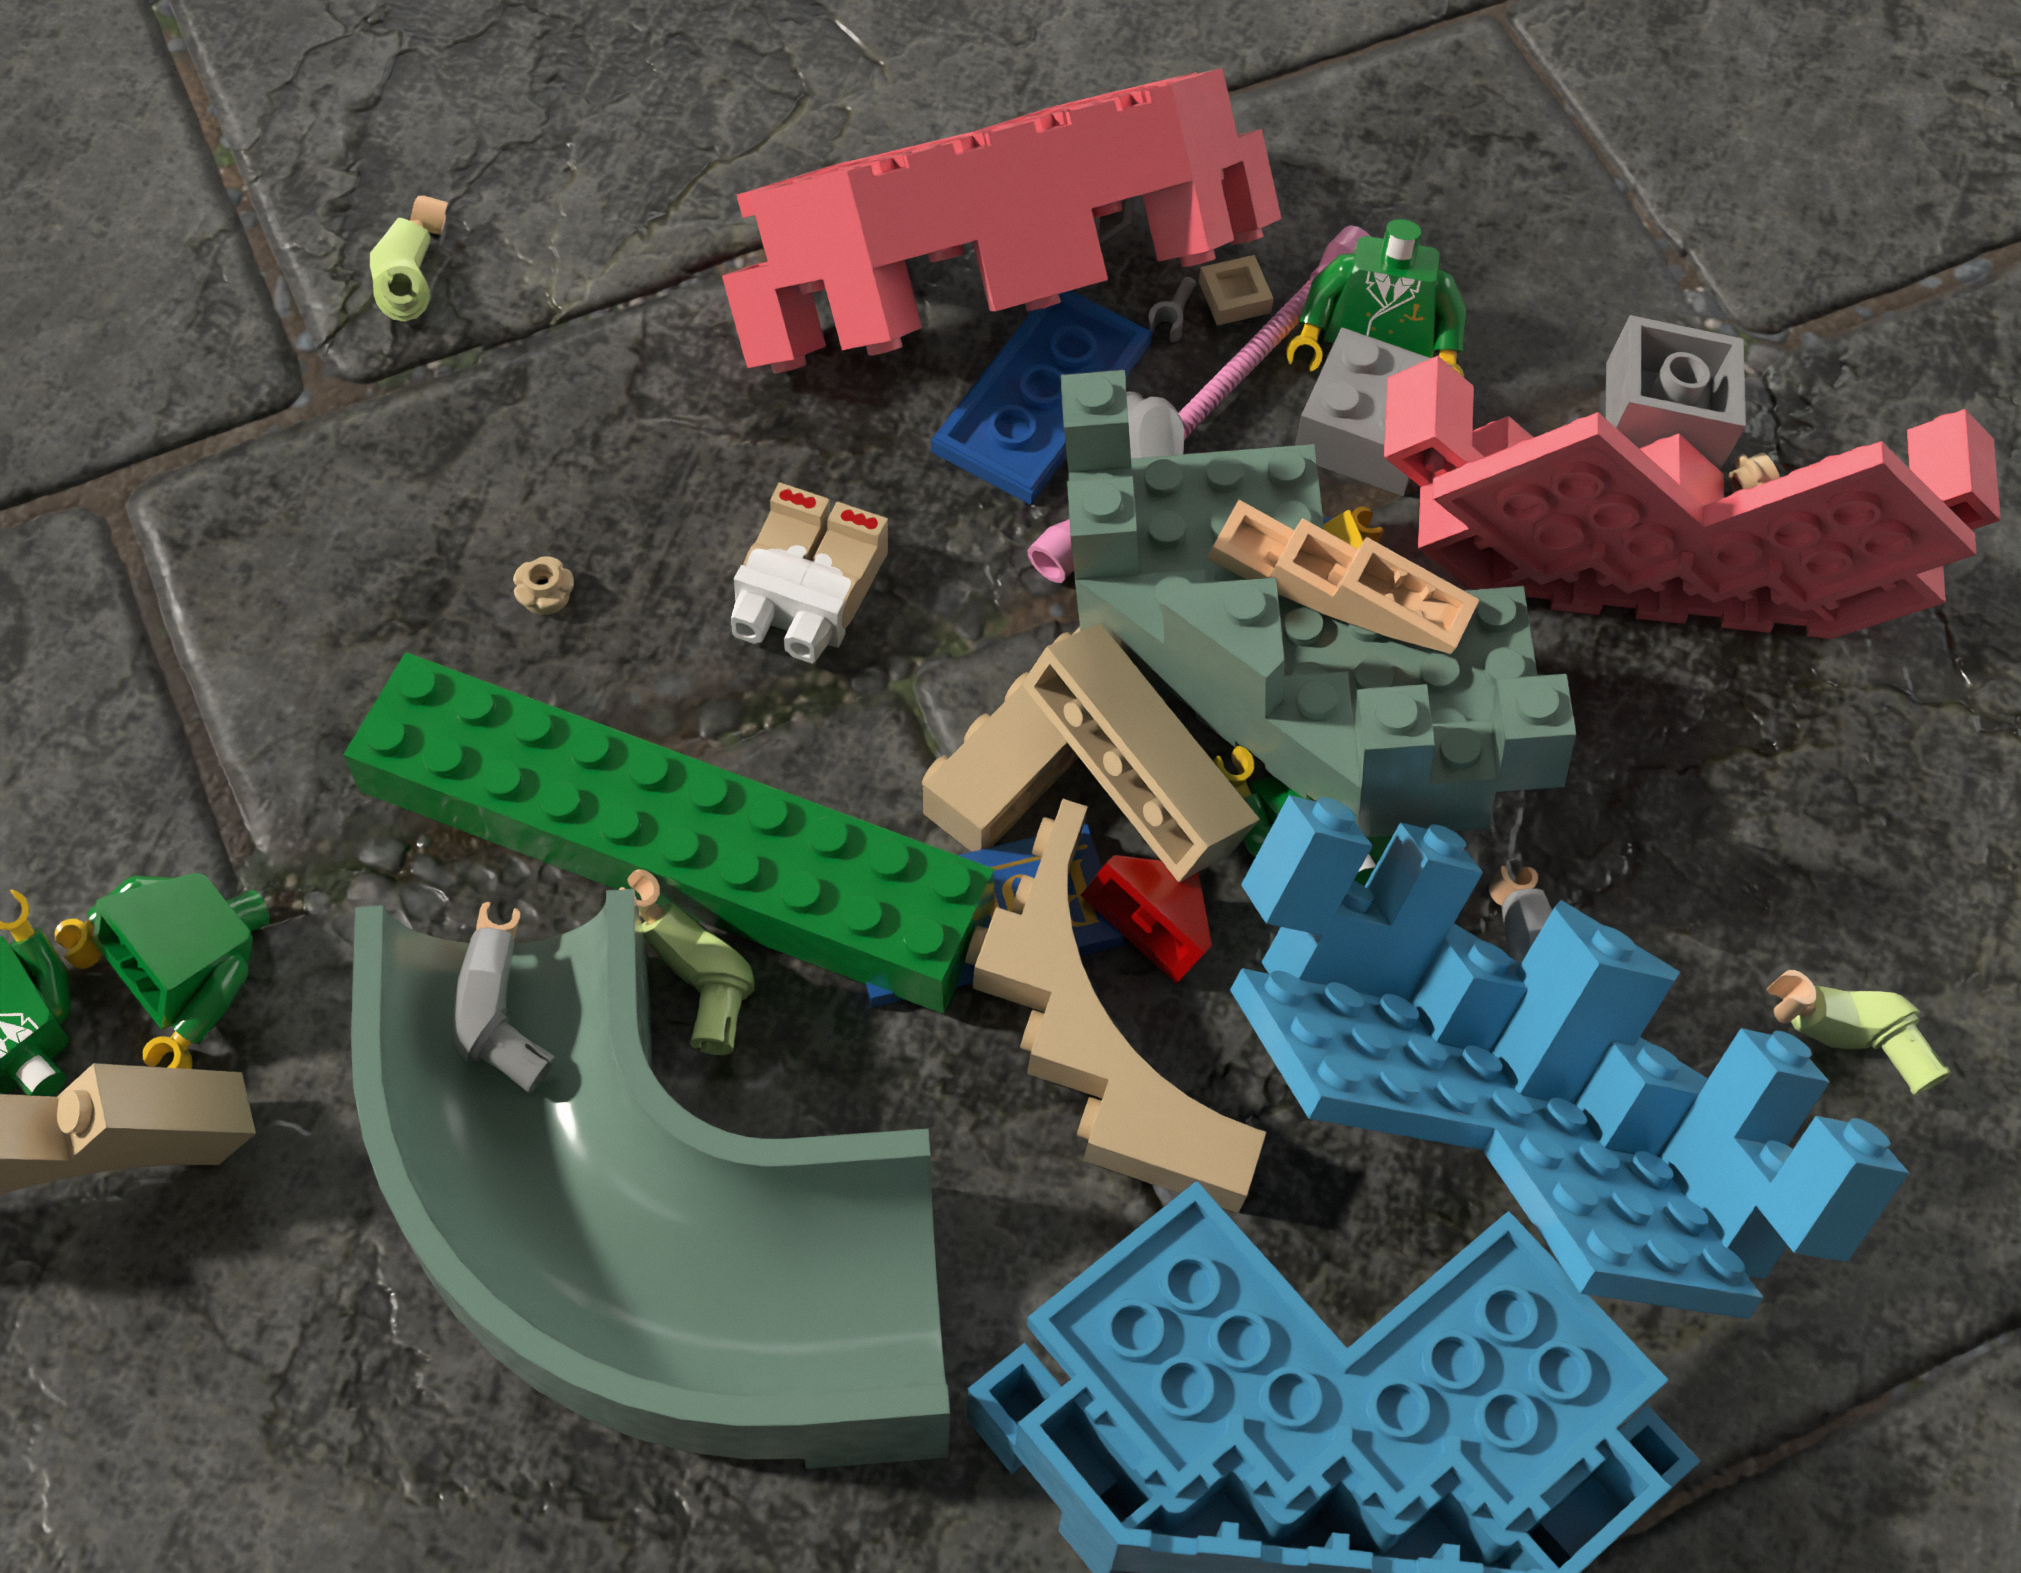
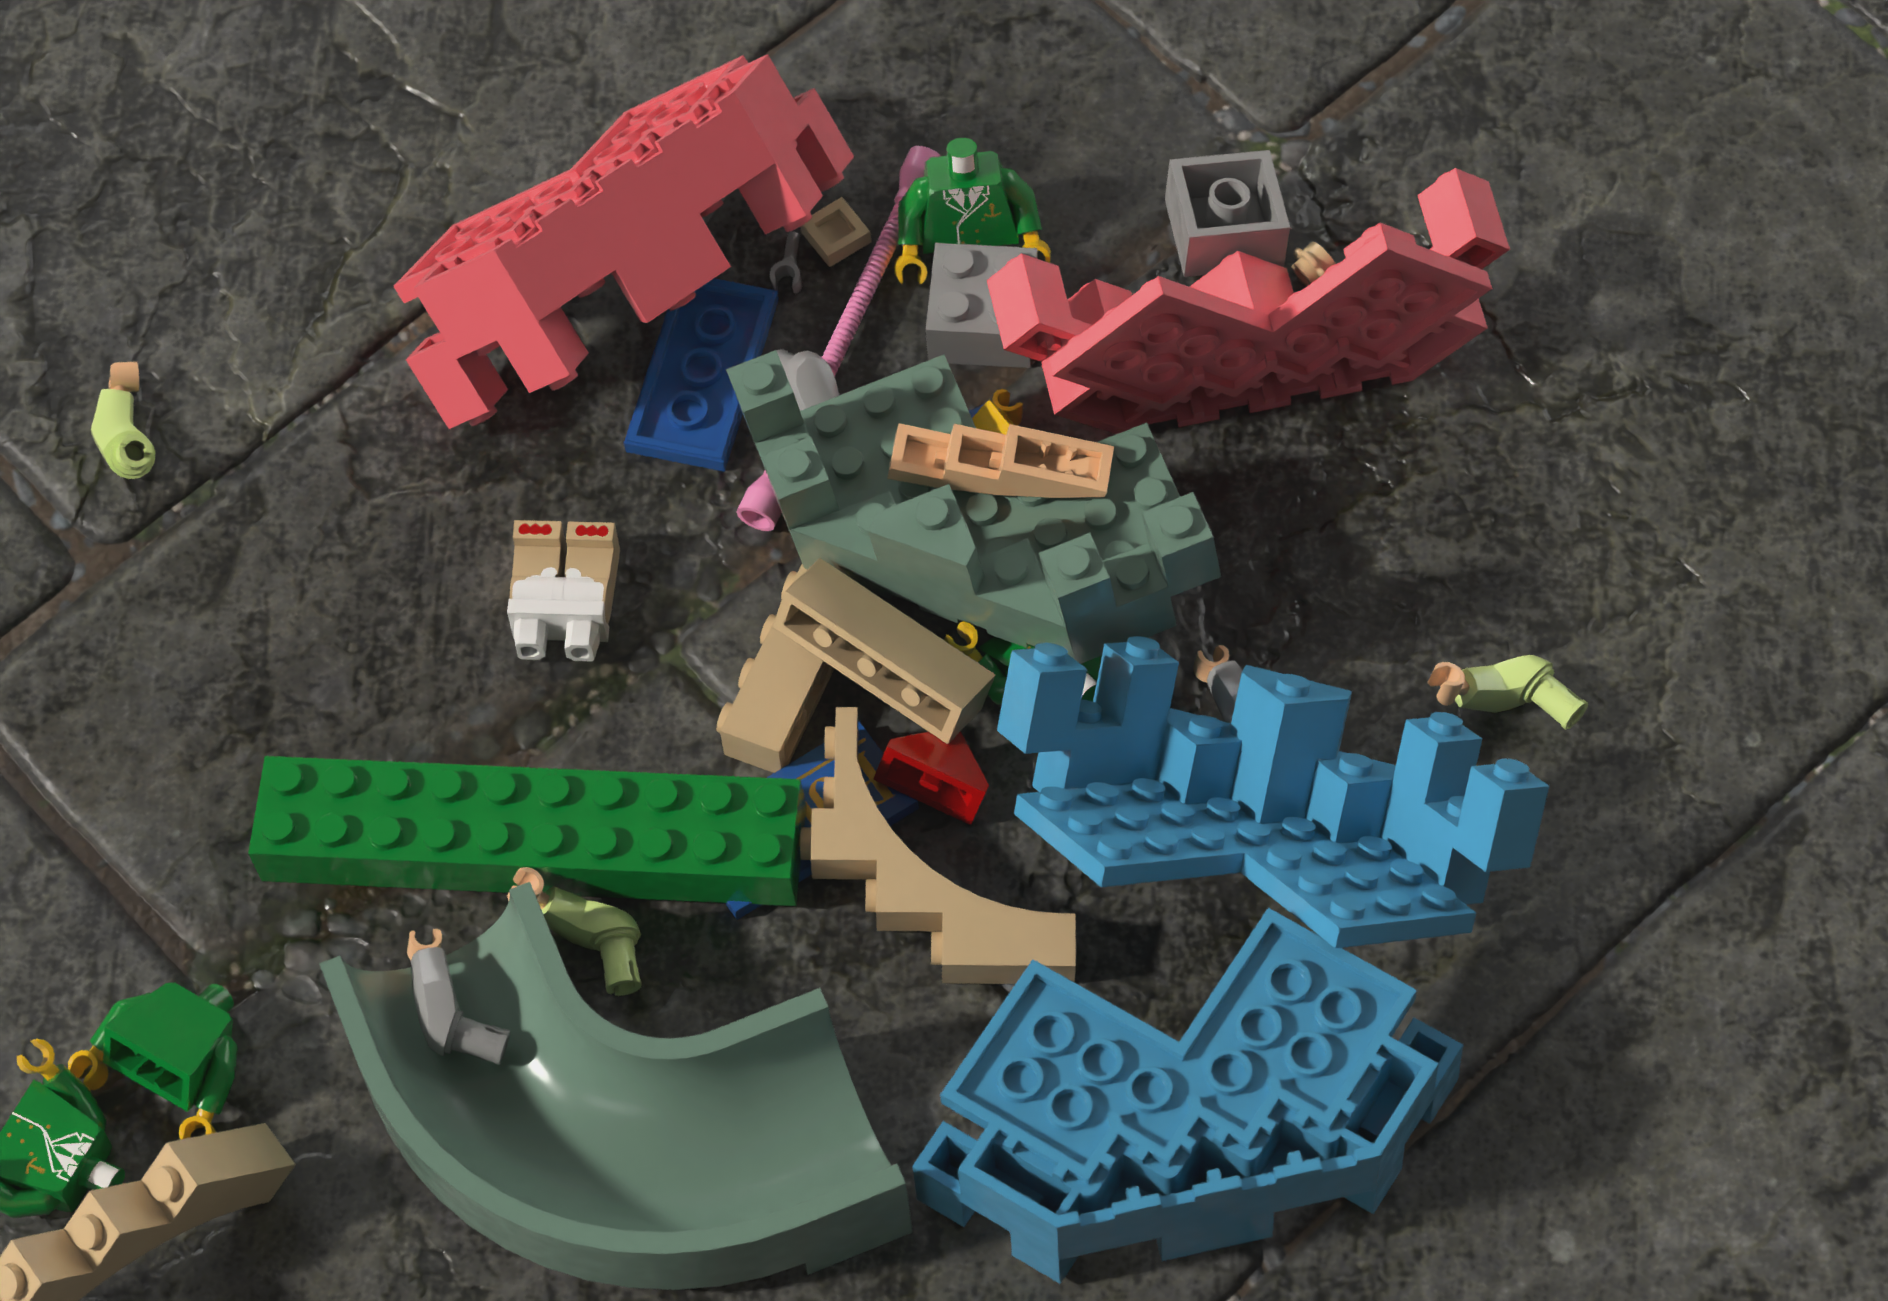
camera: 10 degrees left, 0 degrees up
(543, 598) = (349, 677): tan plate -> none

